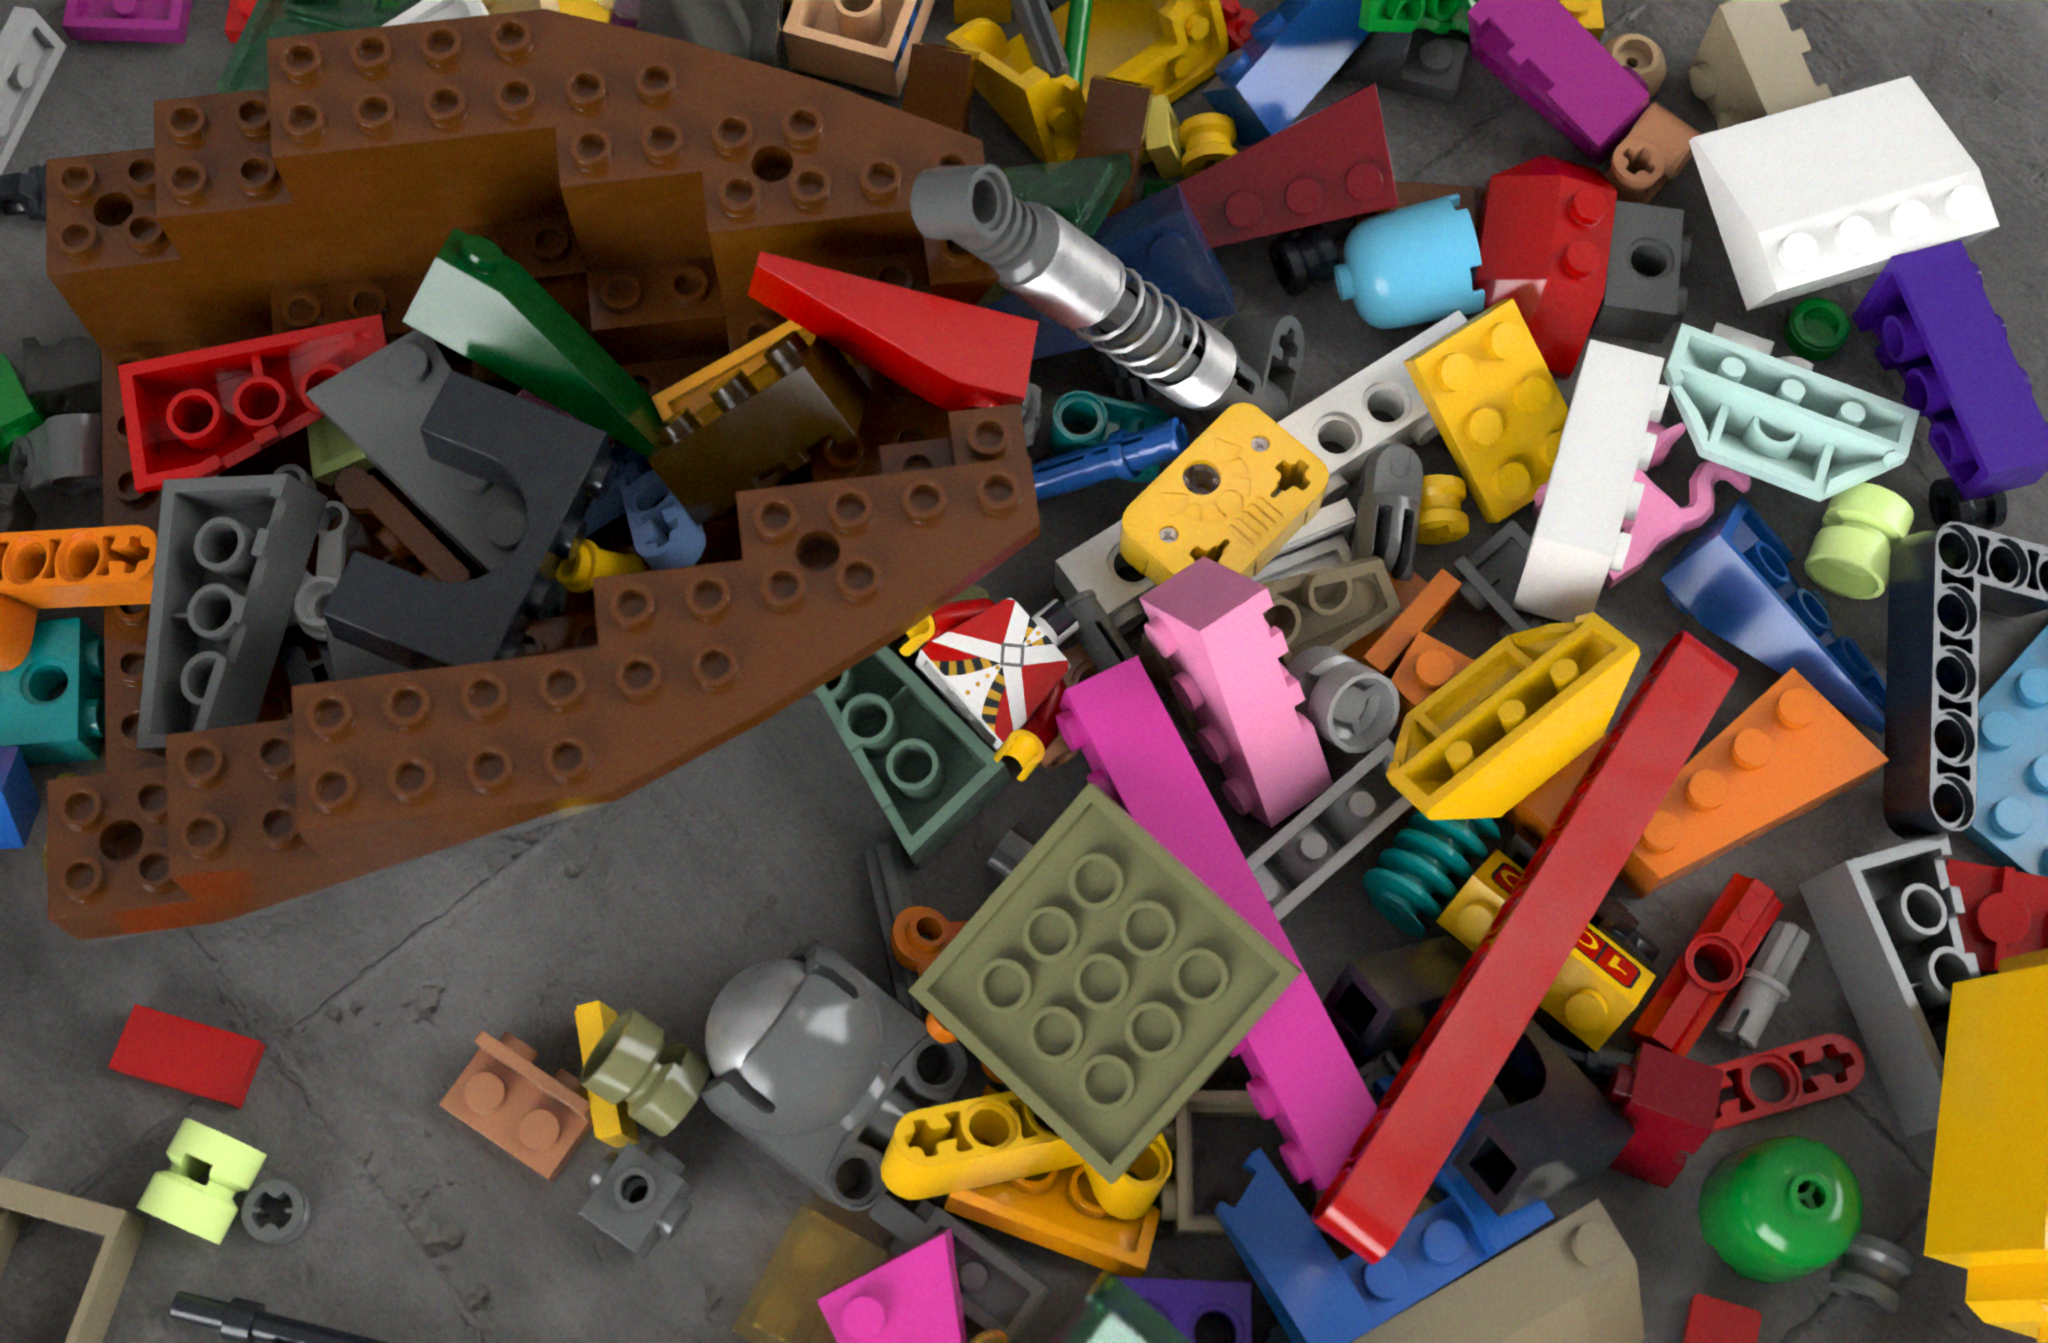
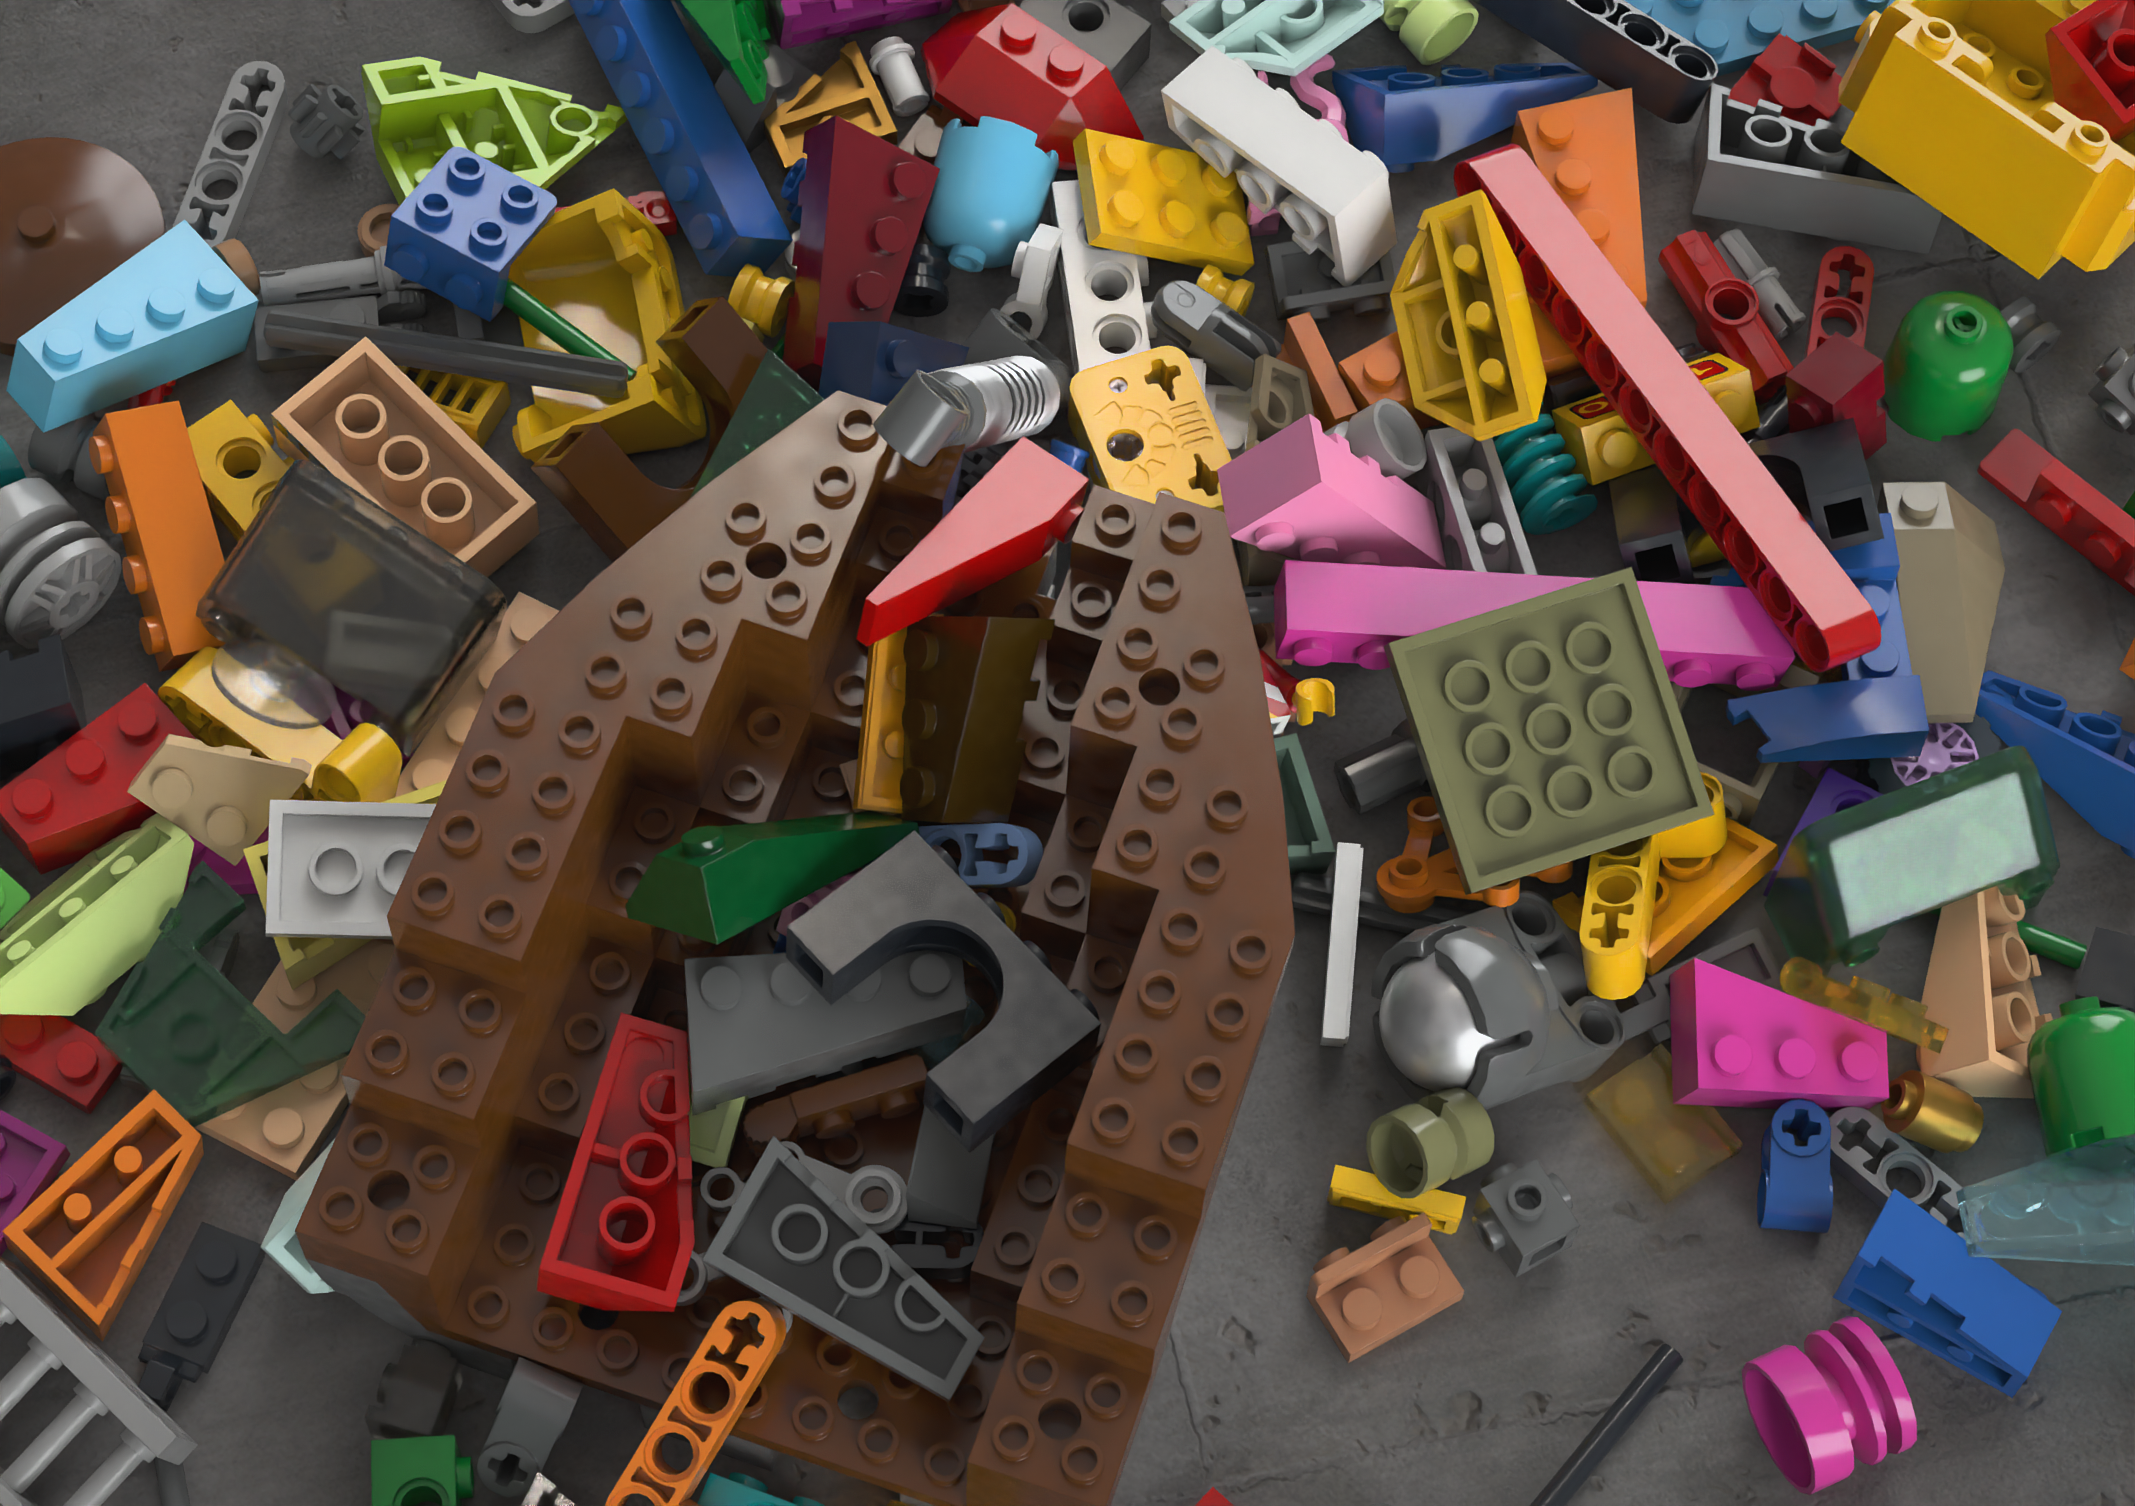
camera: 65 degrees left, 5 degrees down
(103, 79) = (107, 1211): none -> orange wedge
(827, 907) = (1341, 944): none -> white tile
(1358, 340) = (1035, 267): none -> white plate
(1430, 122) = (842, 91): none -> pearl gold wing
(1510, 140) = (894, 64): none -> white pin

